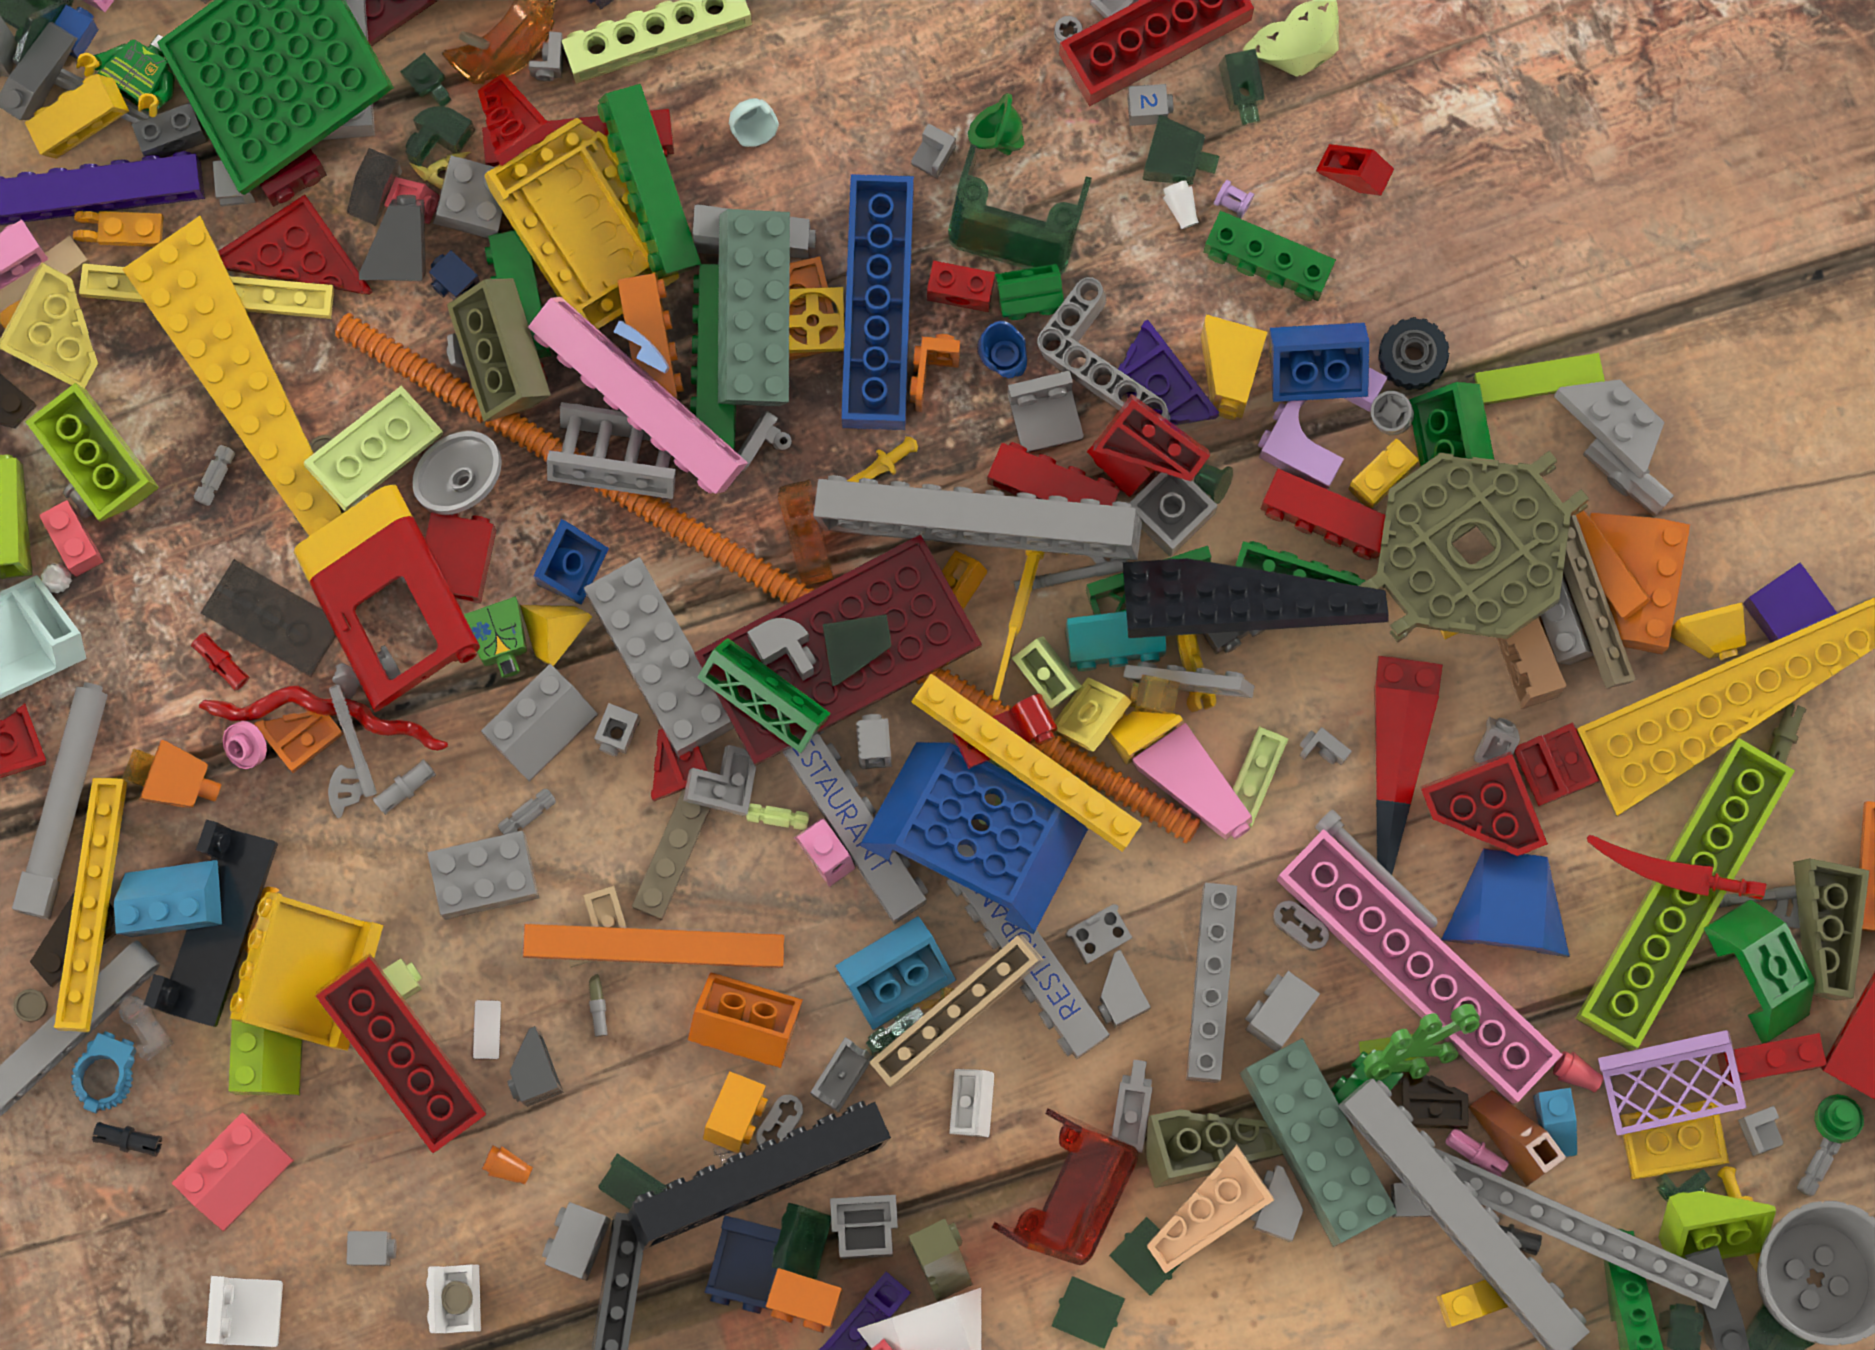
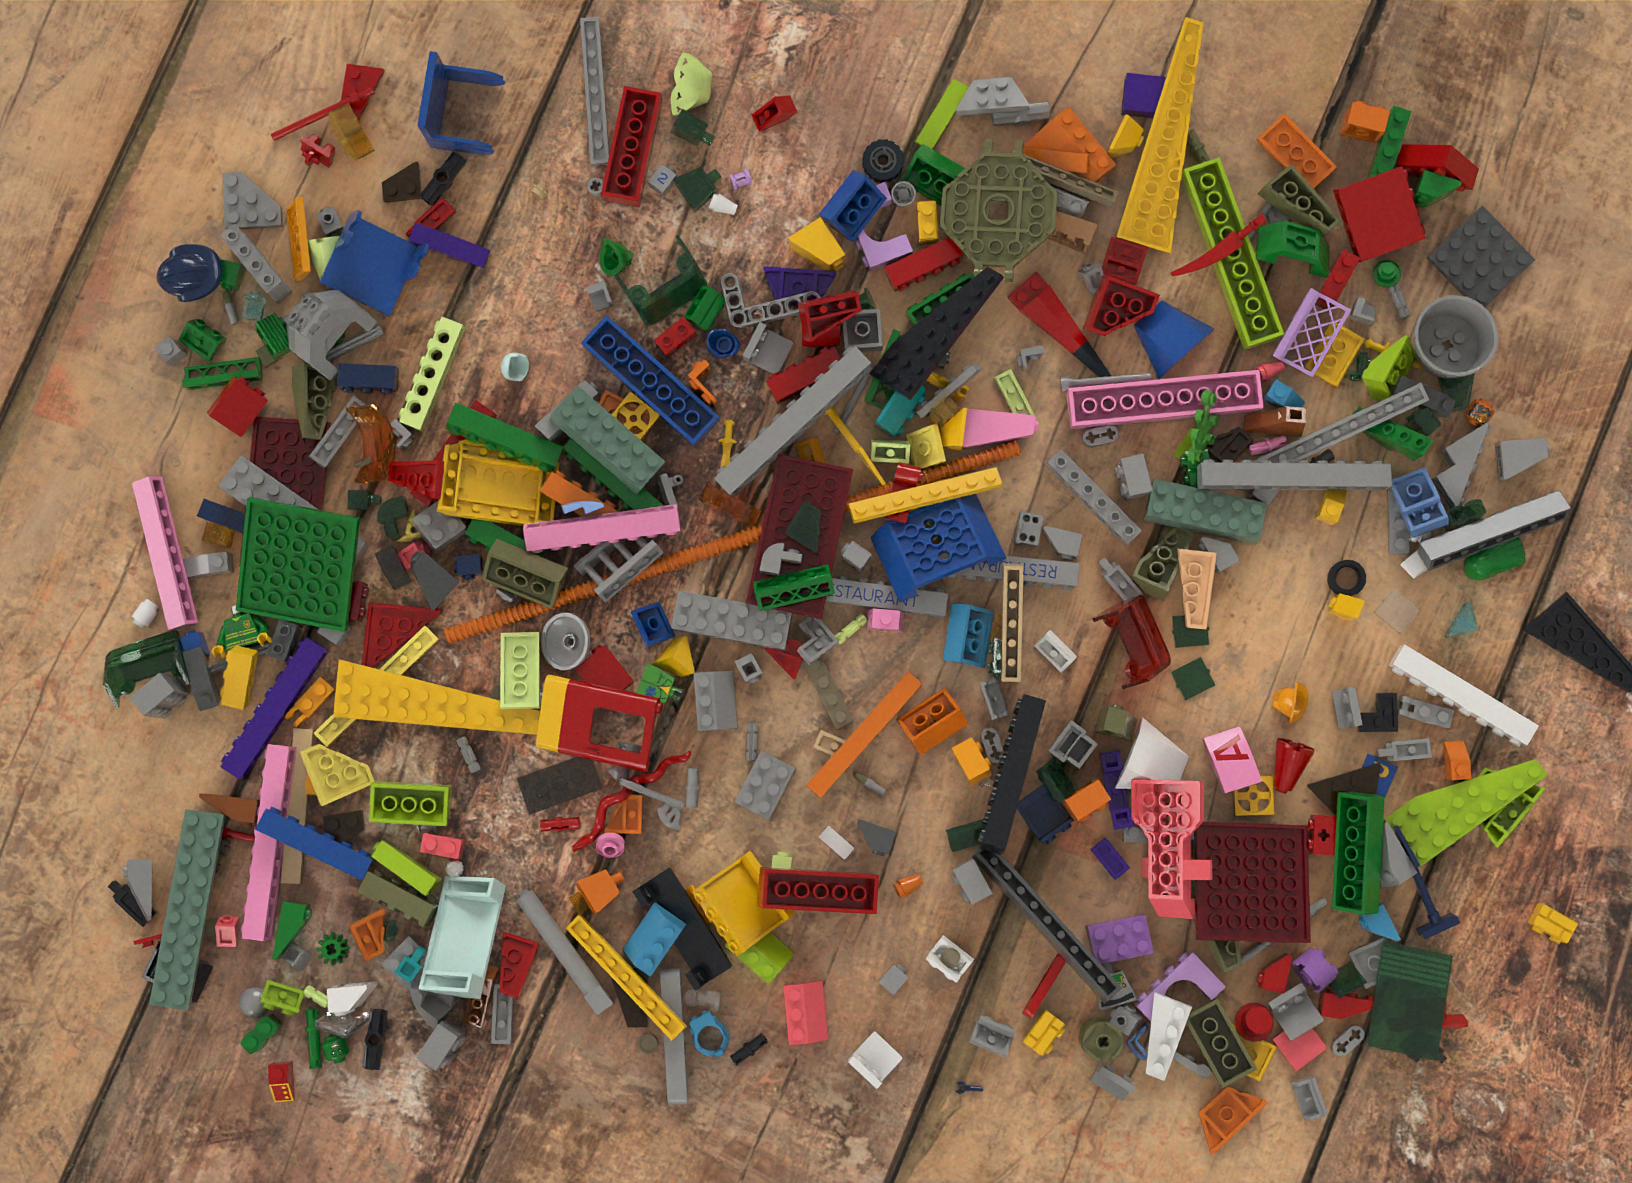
camera: 45 degrees left, 5 degrees up
(1268, 256) = (781, 187): green brick -> none

